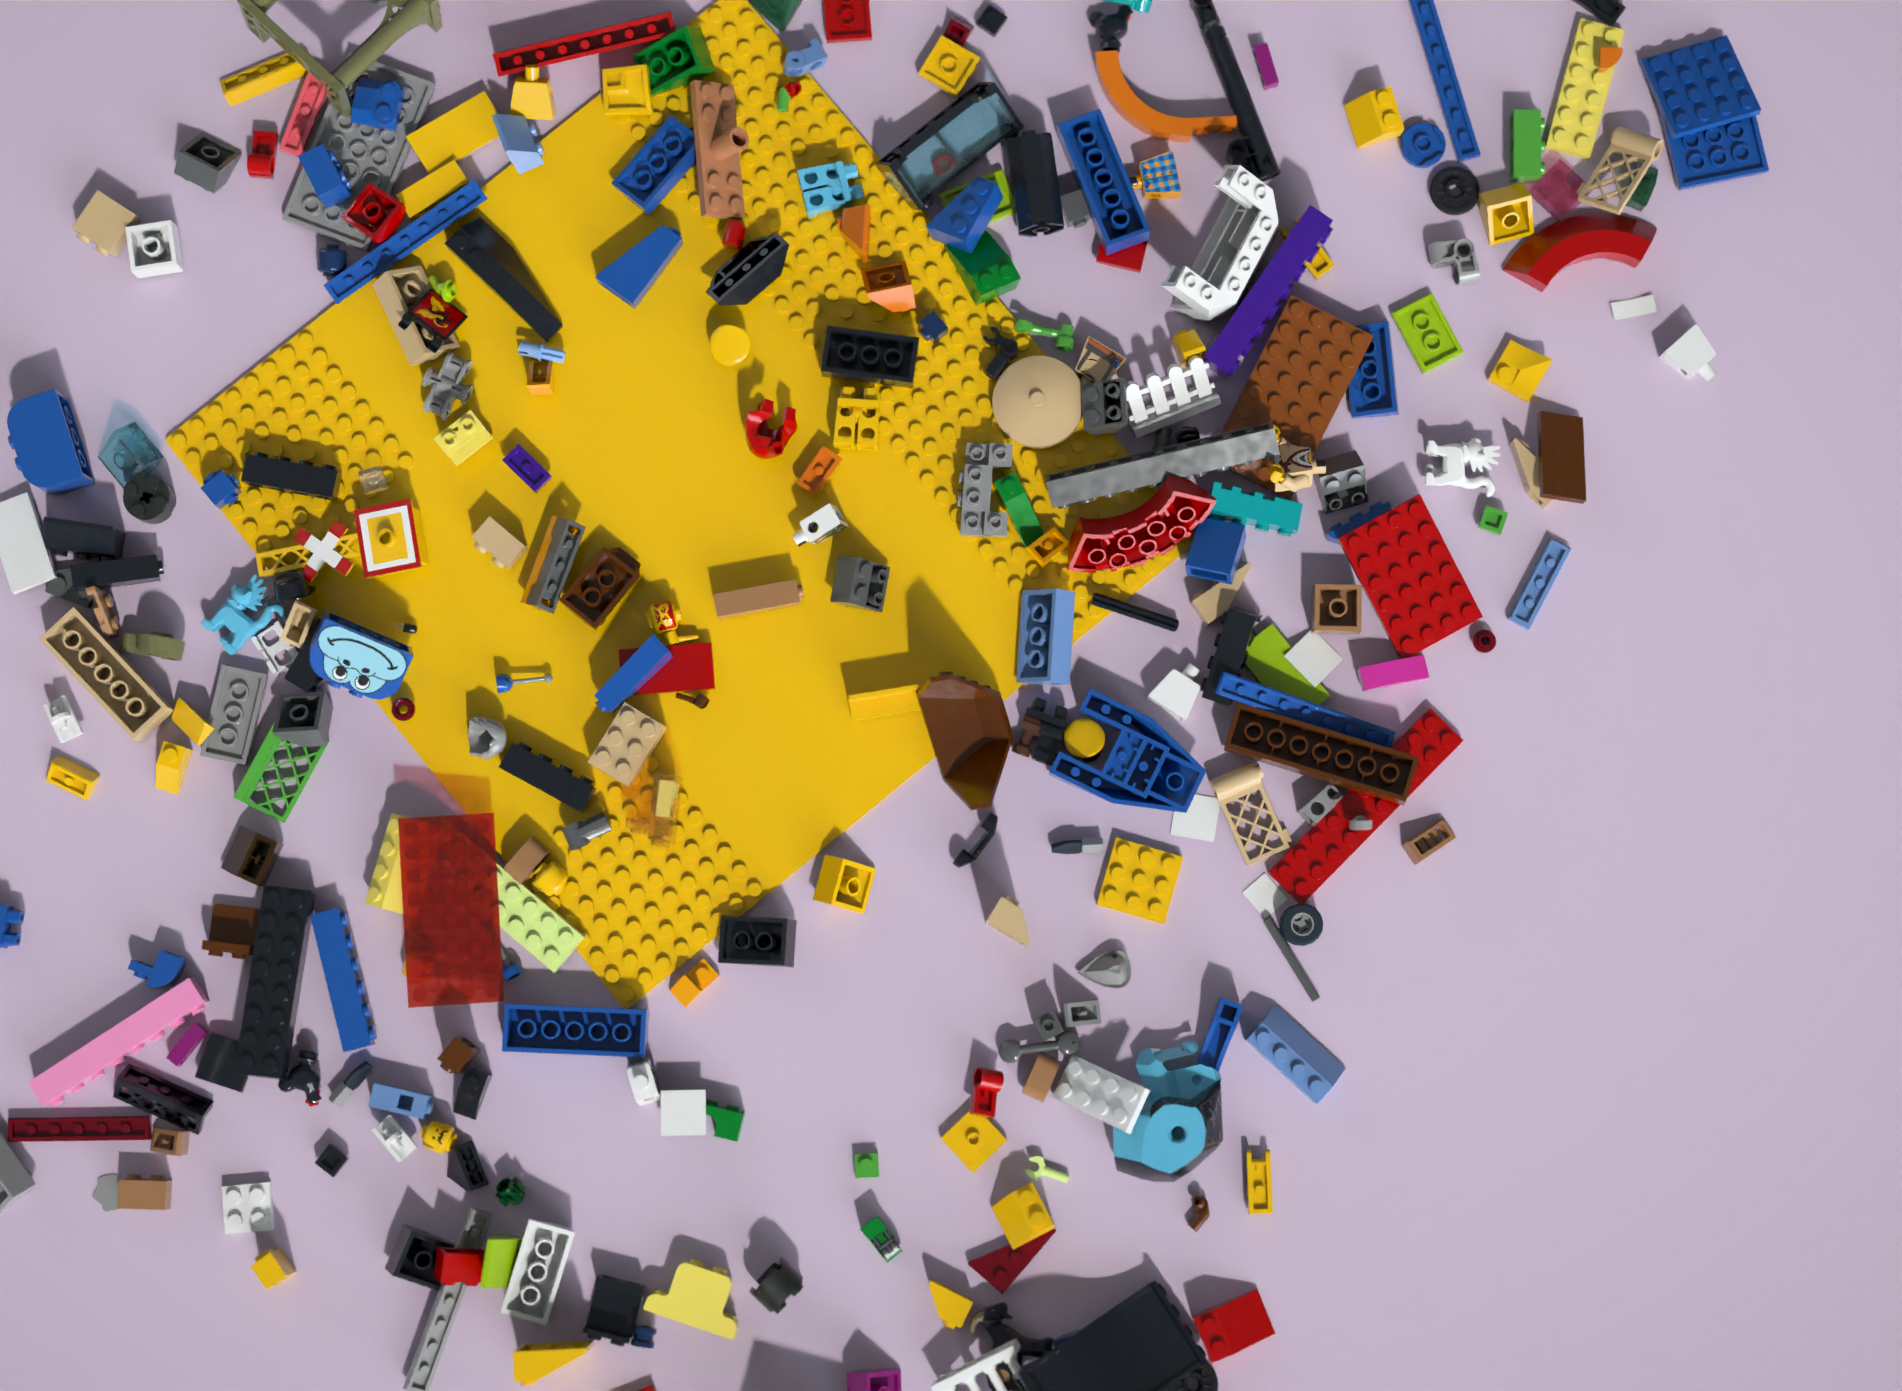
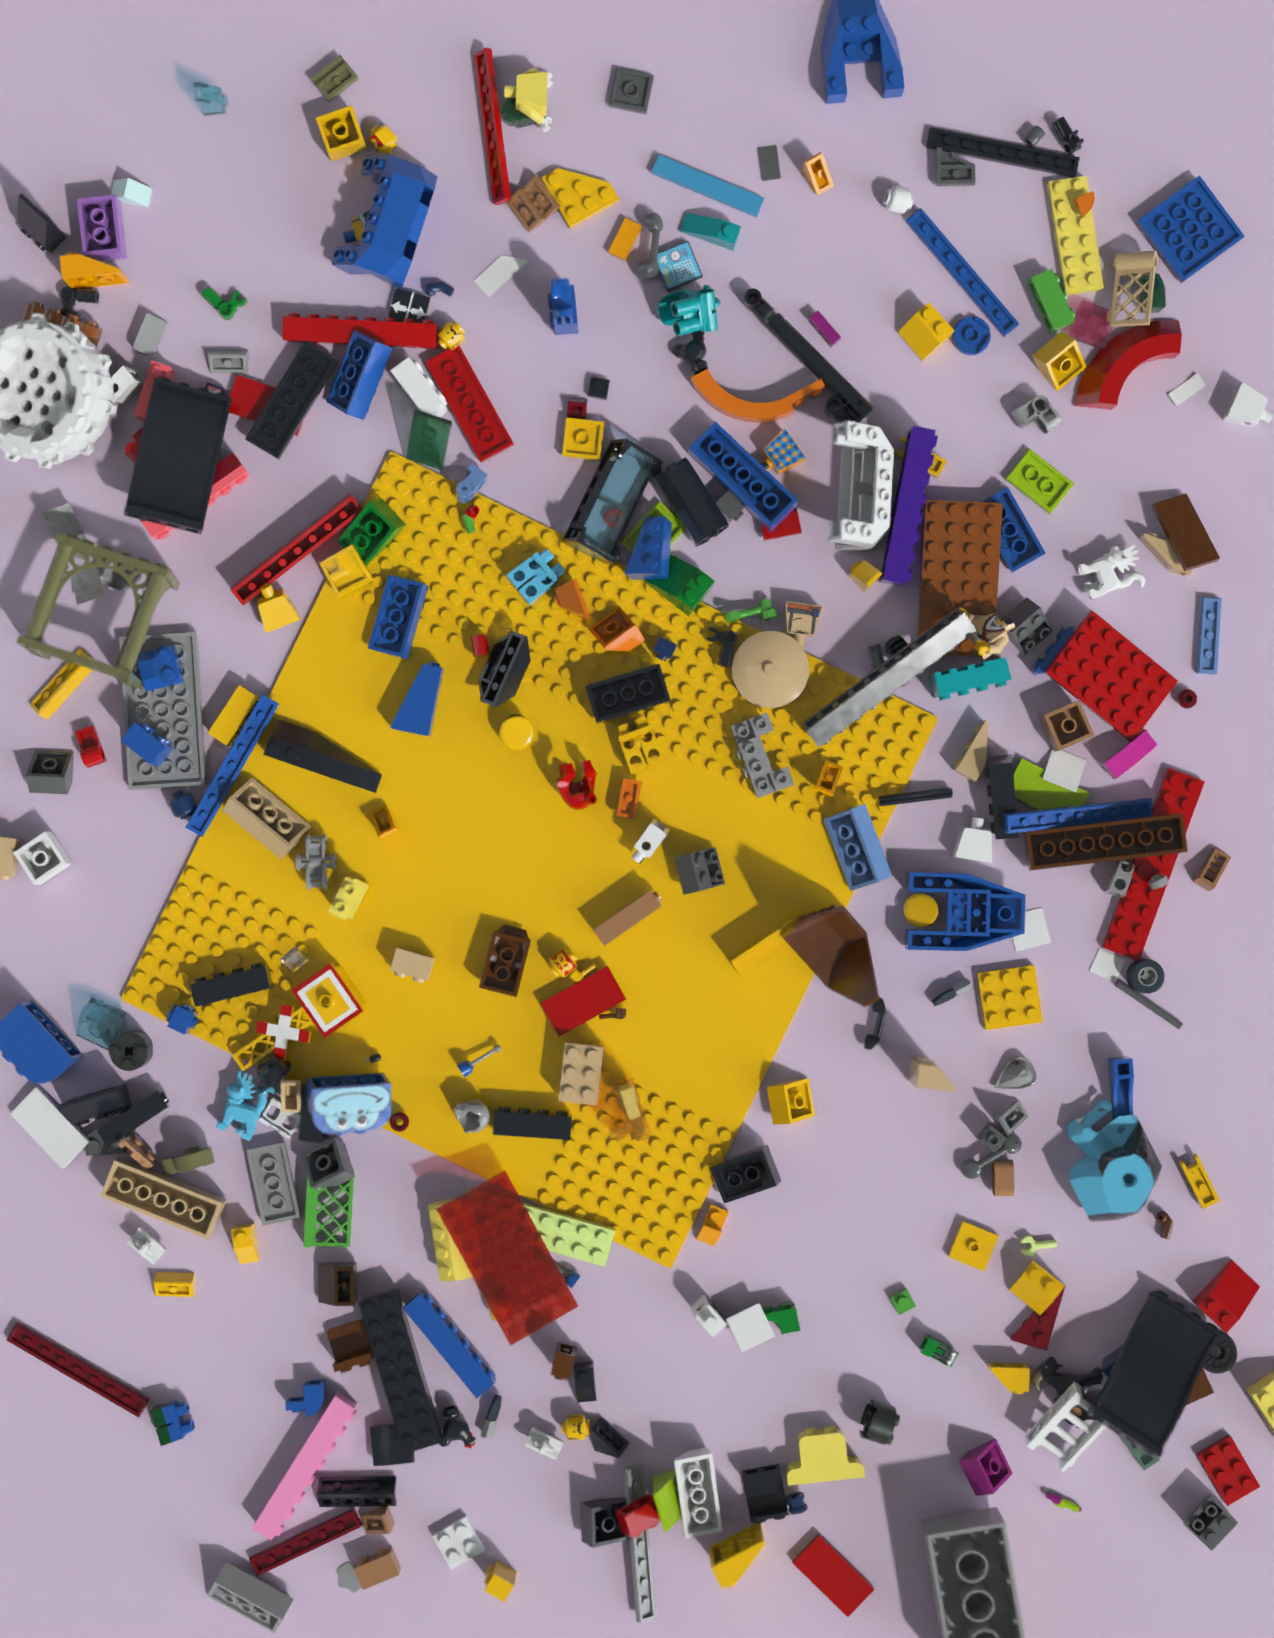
camera: 20 degrees left, 5 degrees up
(187, 1044) = (356, 1443): magenta piece -> none
(191, 721) = (244, 1203): yellow slope -> none
(303, 117) = (108, 702): coral plate -> none
(332, 1160) = (504, 1479): black plate -> none
(375, 213) = (198, 755): red slope -> none
(401, 1101) = (535, 1413): medium blue brick -> none
(435, 316) = (283, 813): flag -> none
(447, 290) = (282, 788): lime plate -> none
(455, 133) = (231, 662): yellow tile -> none
(510, 1191) = (648, 1442): dark green gear -> none
(519, 141) = (282, 648): medium blue slope -> none
(526, 860) = (546, 1193): medium nougat beam -> none
(527, 468) = (406, 897): dark purple plate -> none
(541, 352) = (375, 803): light blue axle -> none
(551, 878) = (570, 1198): yellow head -> none
(553, 564) = (461, 962): dark grey piece -> none
(575, 1030) = (641, 1302): blue brick -> none
(580, 833) = (577, 1153): dark grey piece -> none
(633, 675) = (561, 1020): blue slope -> none
(718, 150) = (437, 586): nougat plate -> none
(984, 1091) = (965, 1206): red plate -> none
(1018, 508) = (793, 759): green slope -> none
(1045, 727) = (889, 915): black hips -> none
(1101, 1094) = (1056, 1172): white plate -> none
(1104, 406) = (824, 651): dark grey slope -> none
(1141, 532) = (894, 734): red brick -> none
(1175, 408) = (871, 632): white fence -> none
(1216, 550) = (956, 722): blue brick -> none
(1235, 785) = (1054, 889): tan piece -> none
(1295, 1054) = (1184, 1074): medium blue slope -> none
(1454, 204) = (1006, 371): black wheel -> none
(1492, 520) = (1153, 603): bright green plate -> none
(1519, 370) = (1122, 478): yellow plate -> none
(1700, 87) = (1164, 194): blue plate -> none

